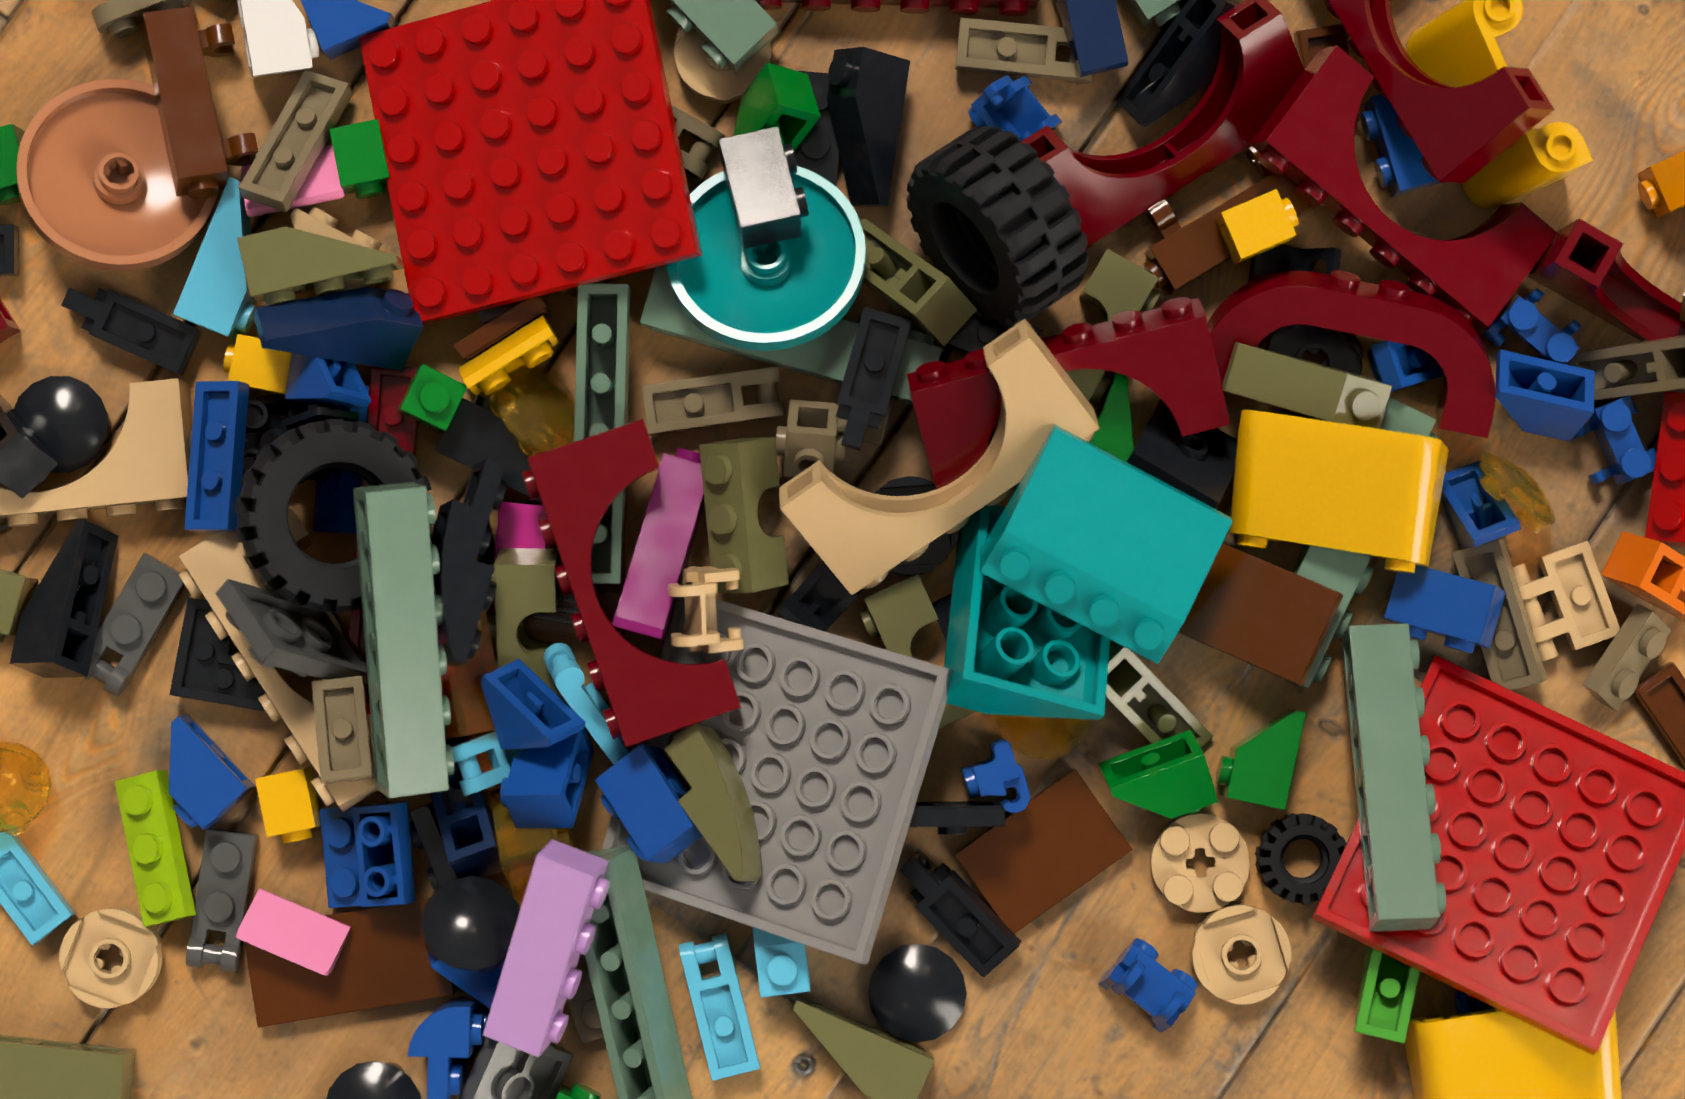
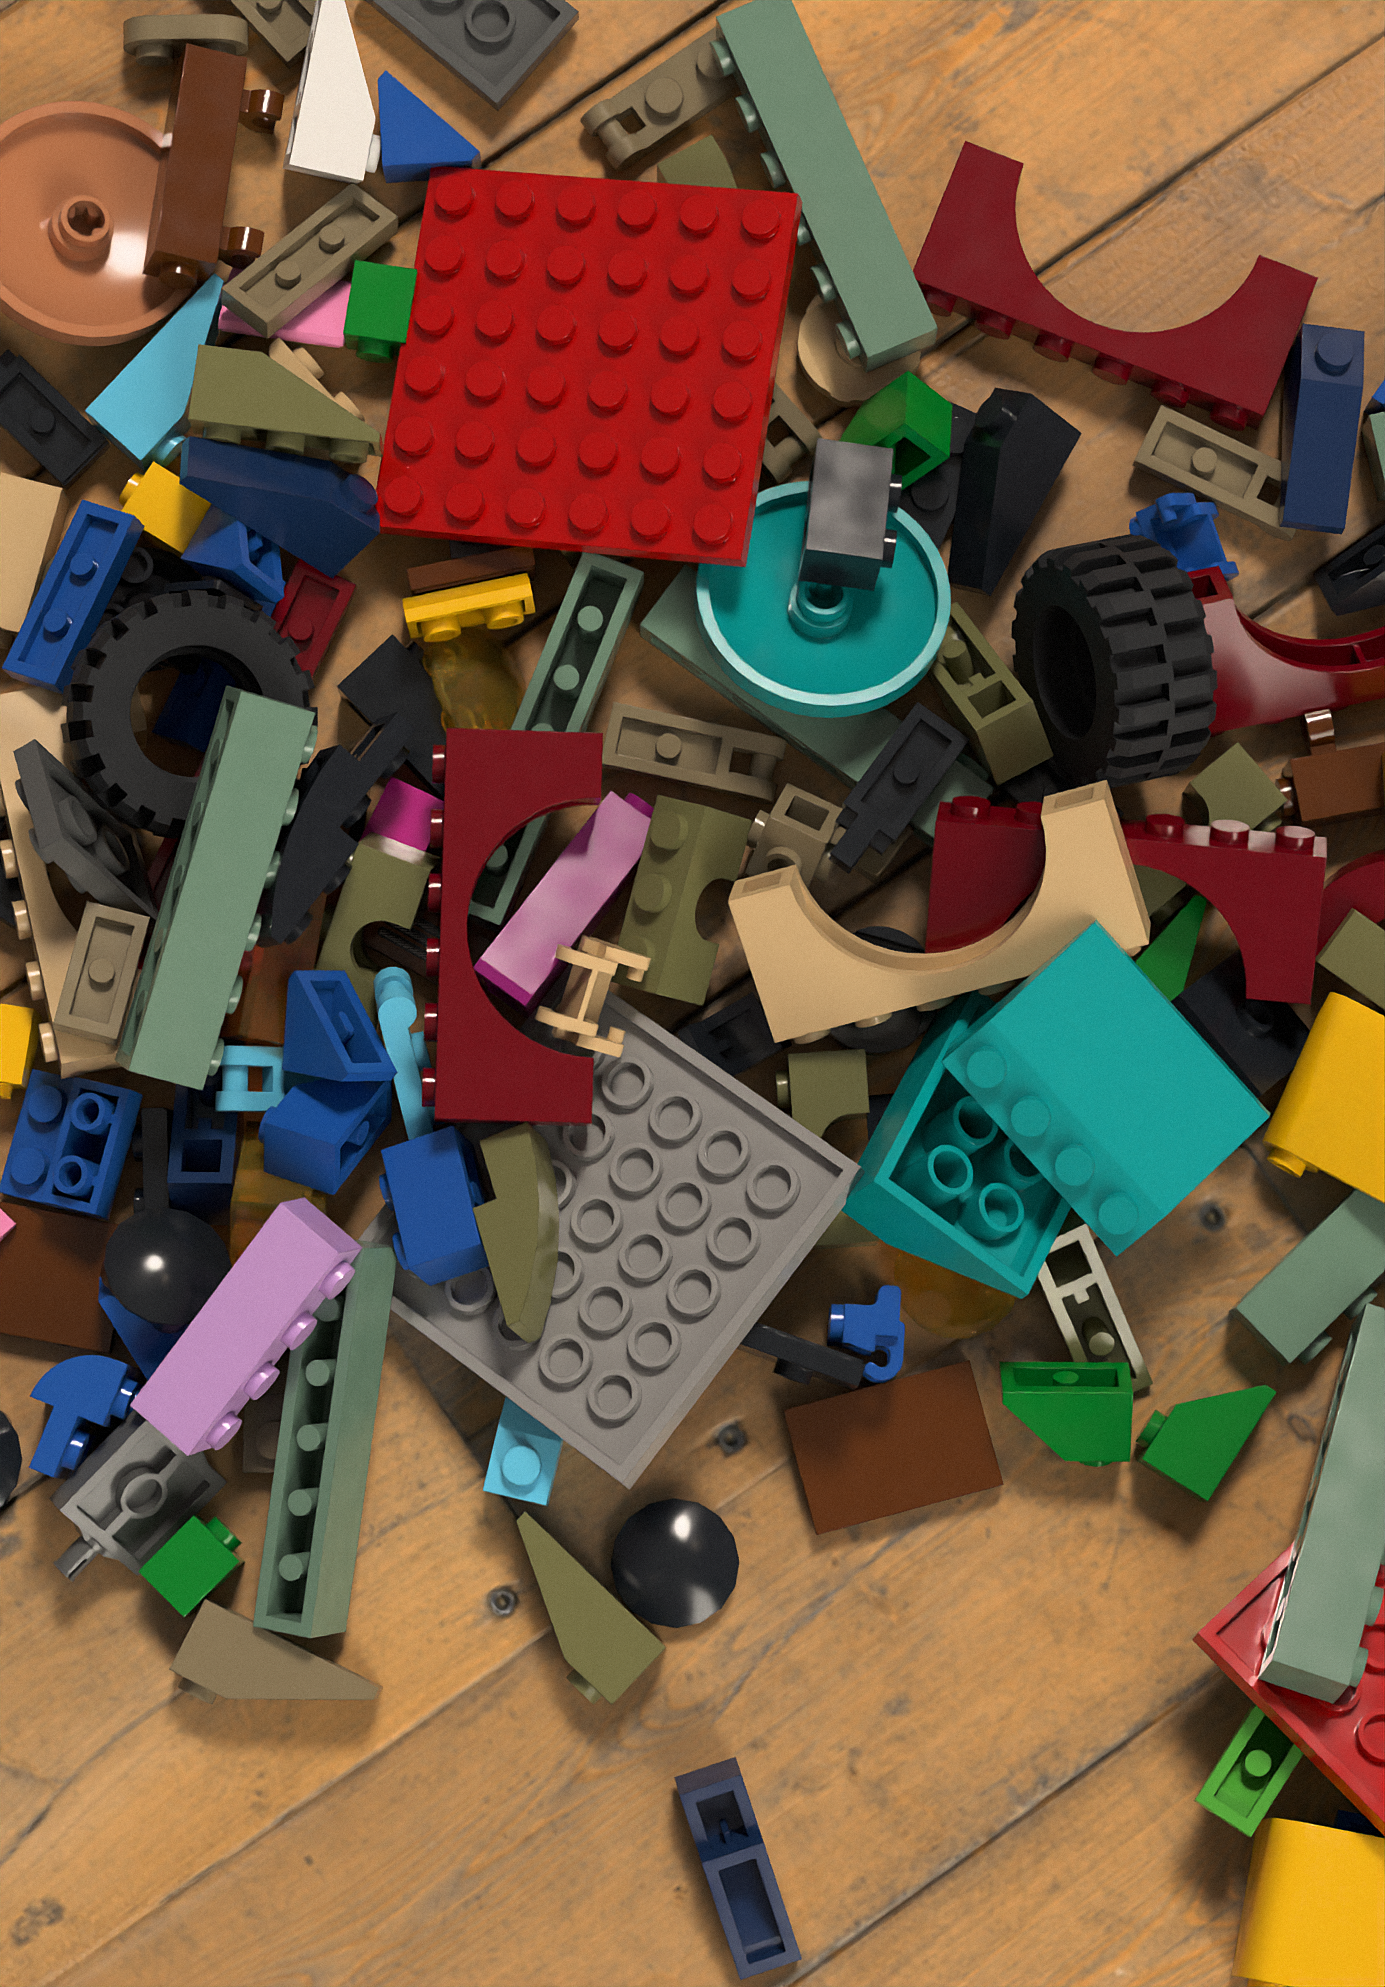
camera: 20 degrees right, 5 degrees down
(431, 399) = (356, 623): green brick -> none
(719, 1008) = (426, 1491): medium azure plate -> none
(959, 914) = (762, 1484): black hinge -> none
(1150, 985) = (965, 1657): blue piece -> none
(1180, 884) = (1112, 1513): tan plate -> none
(1261, 614) = (1262, 1248): reddish brown tile -> none
(1265, 967) = (1116, 1636): tan plate -> none
(1272, 850) = (1177, 1545): black tyre -> none

